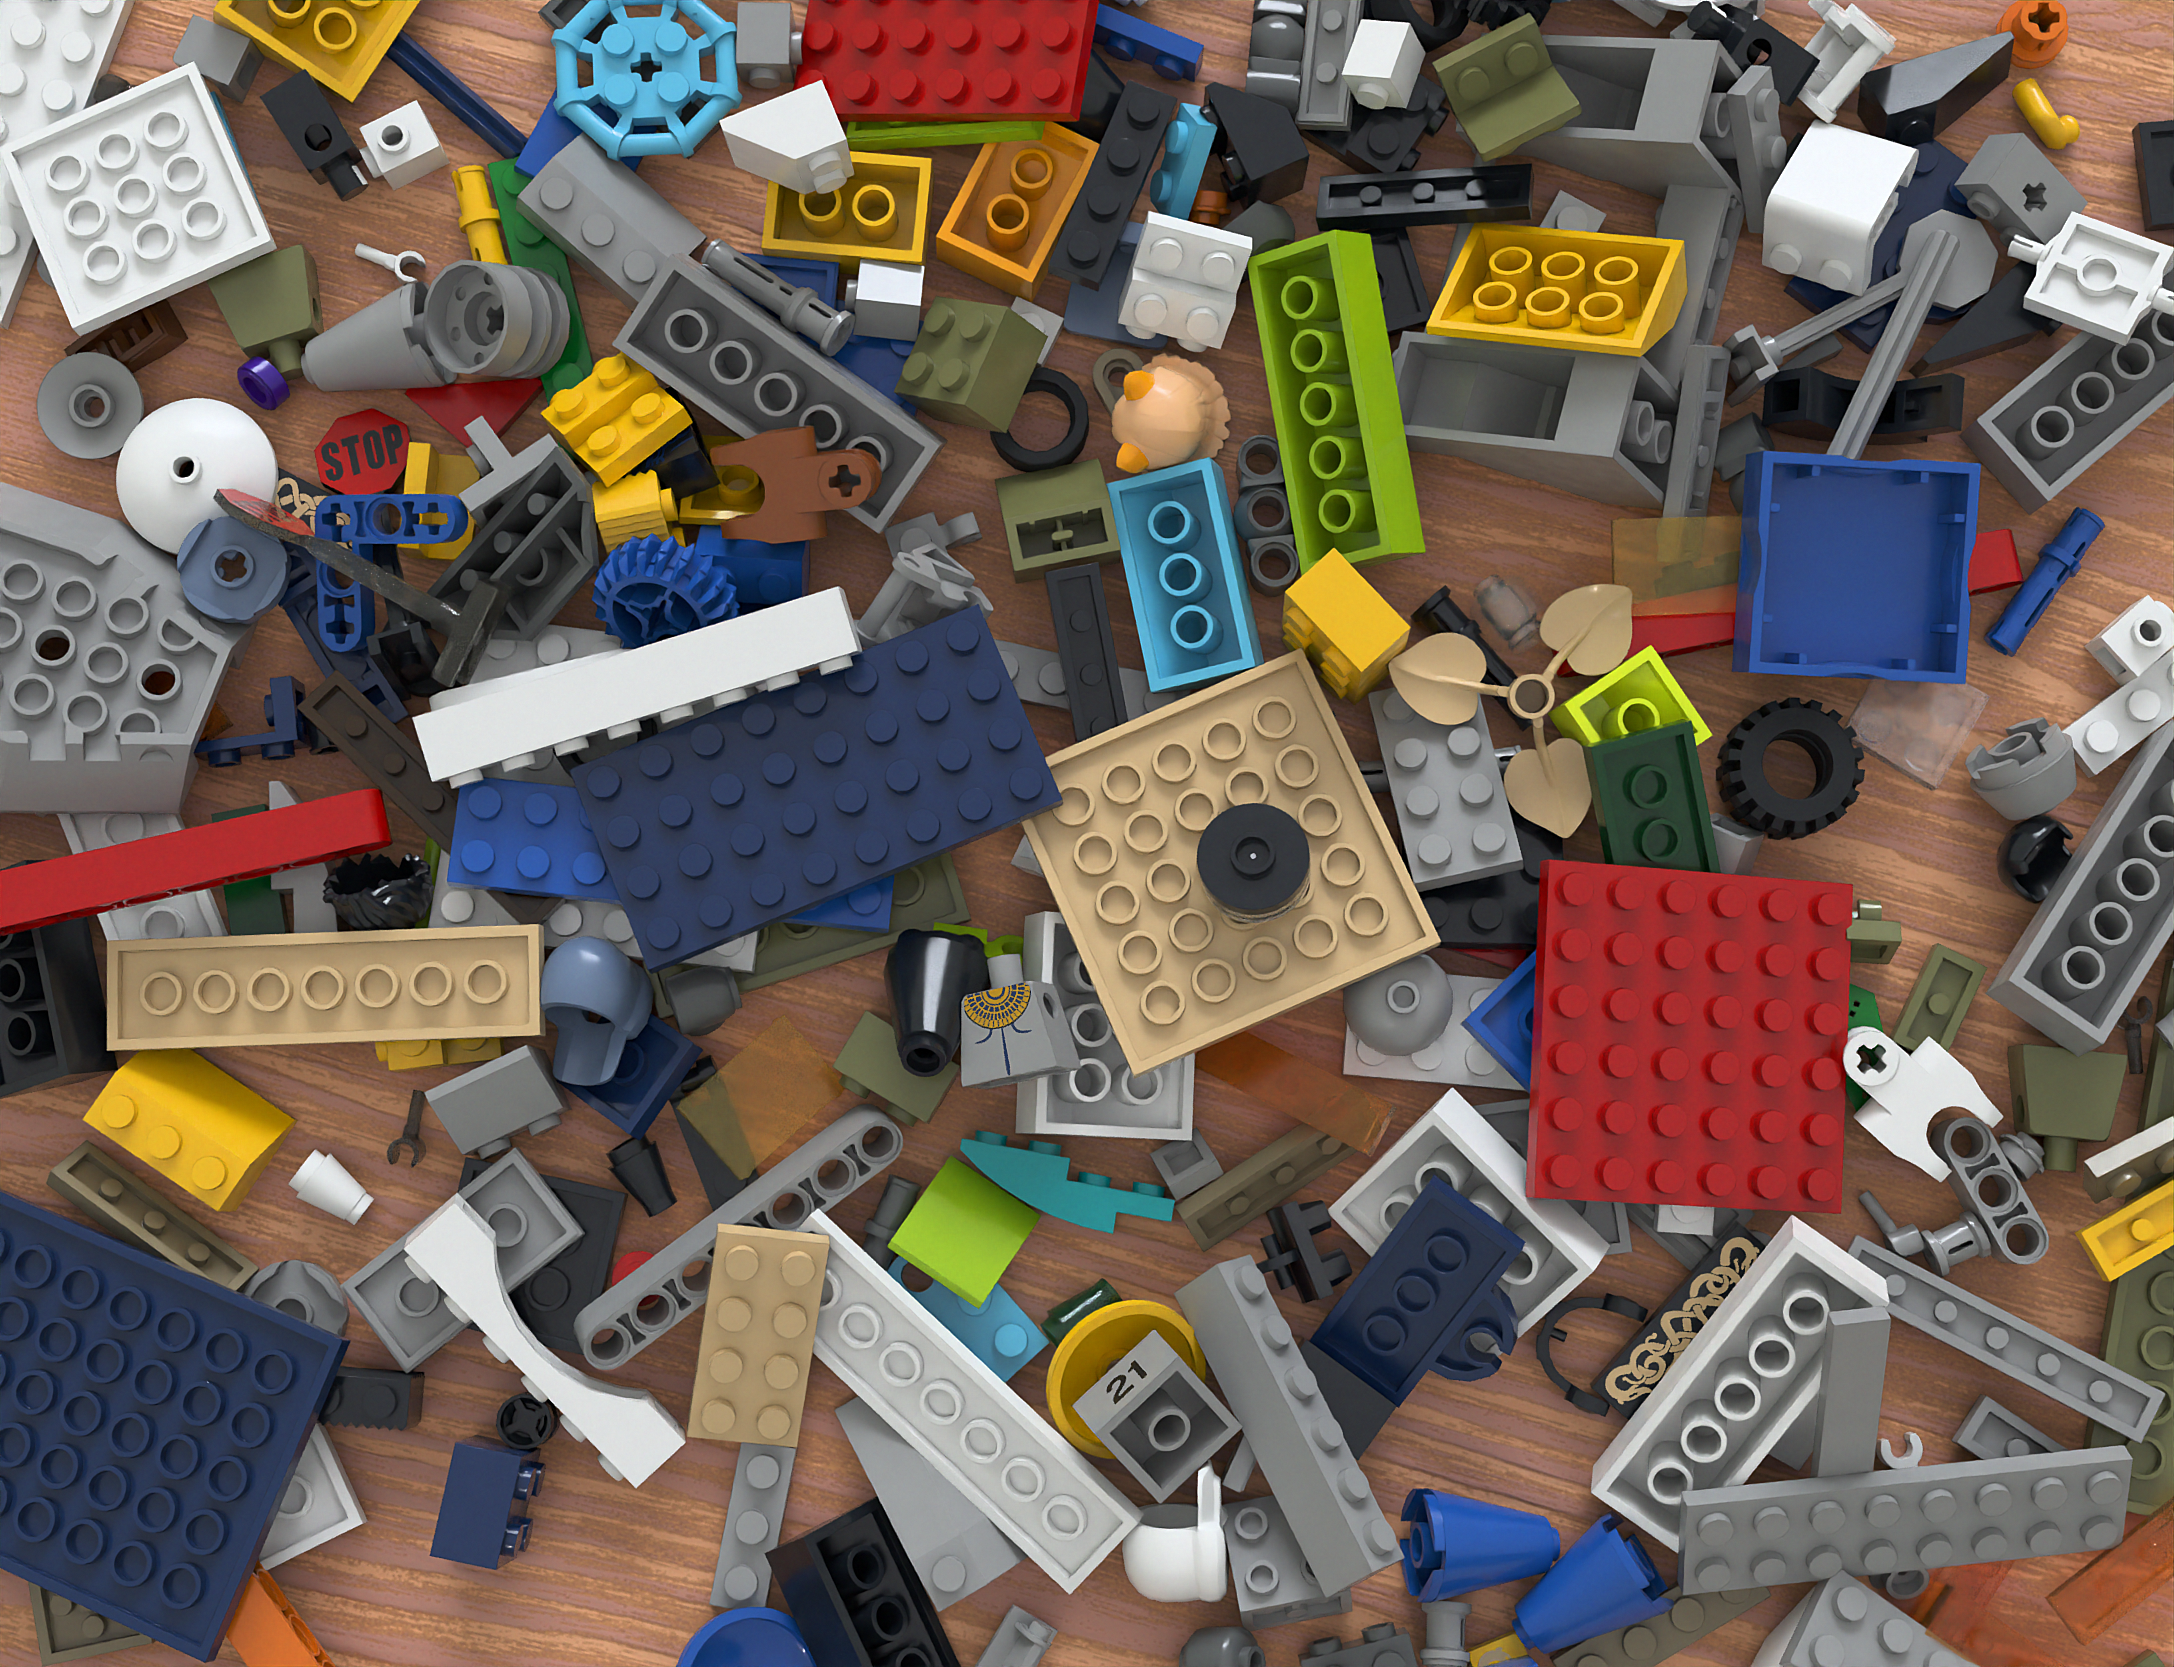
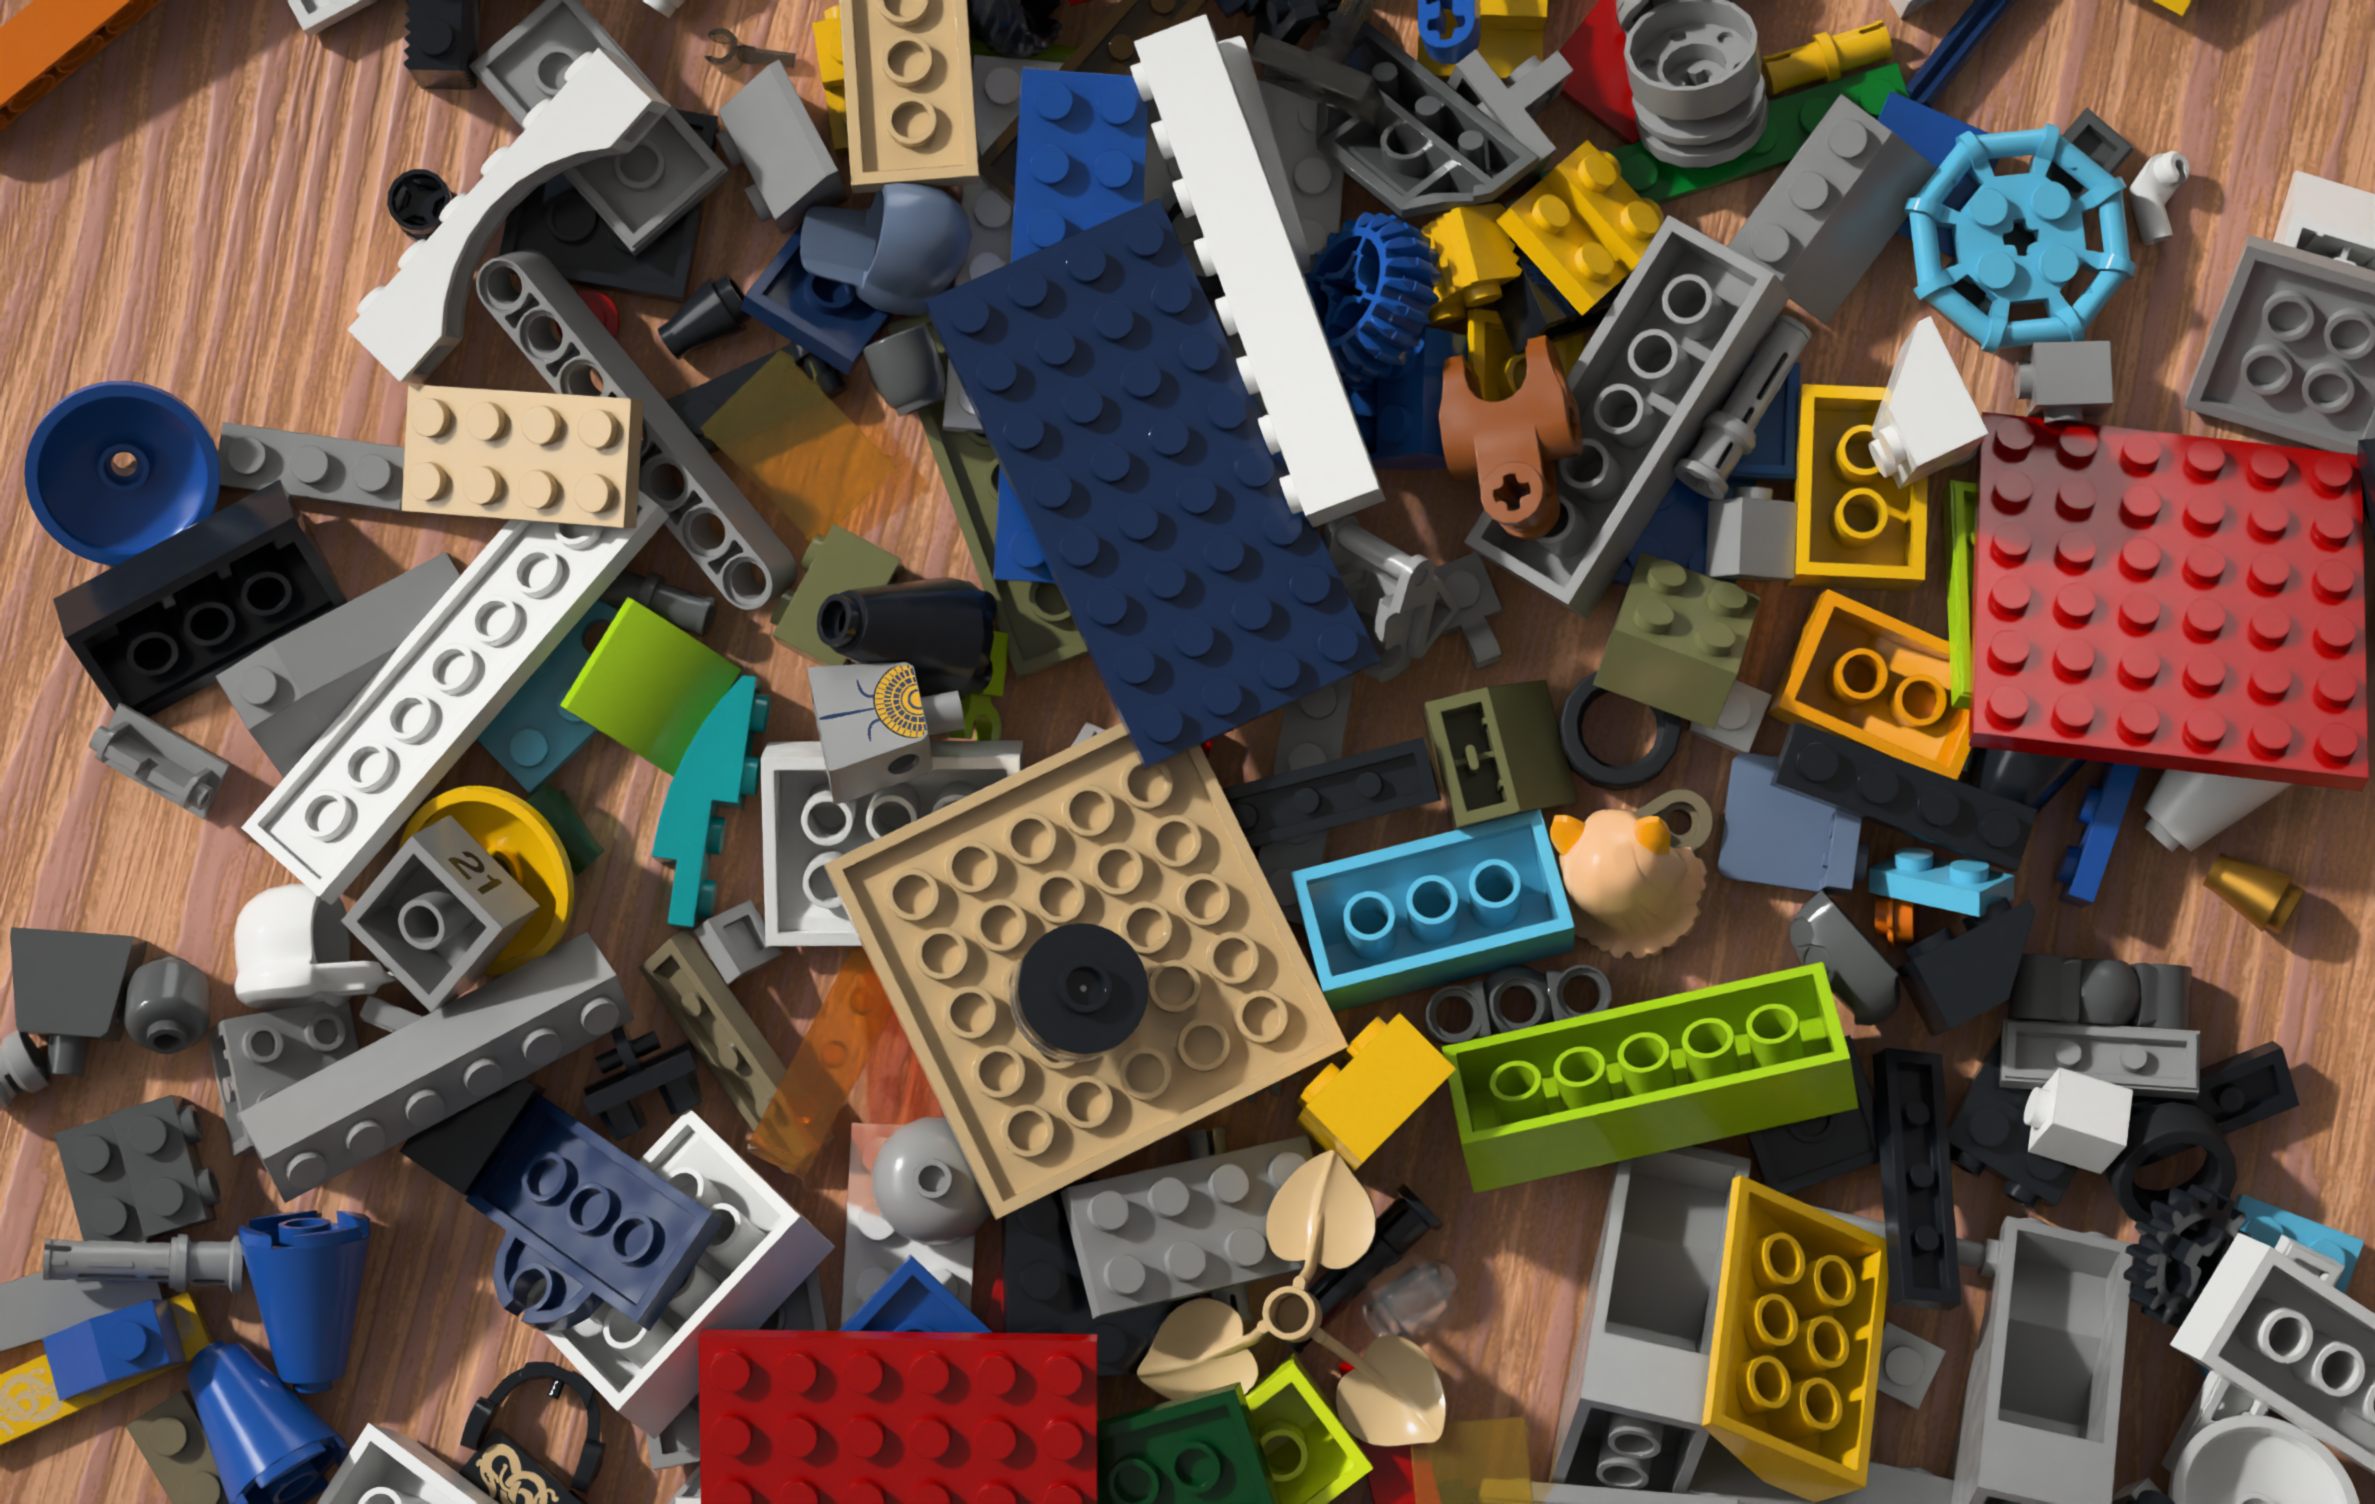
camera: 90 degrees right, 0 degrees up
(487, 1502) = (325, 164): dark blue brick -> none
(1183, 282) = (1790, 888): white plate -> none
(1505, 89) = (2048, 1268): olive bracket -> none

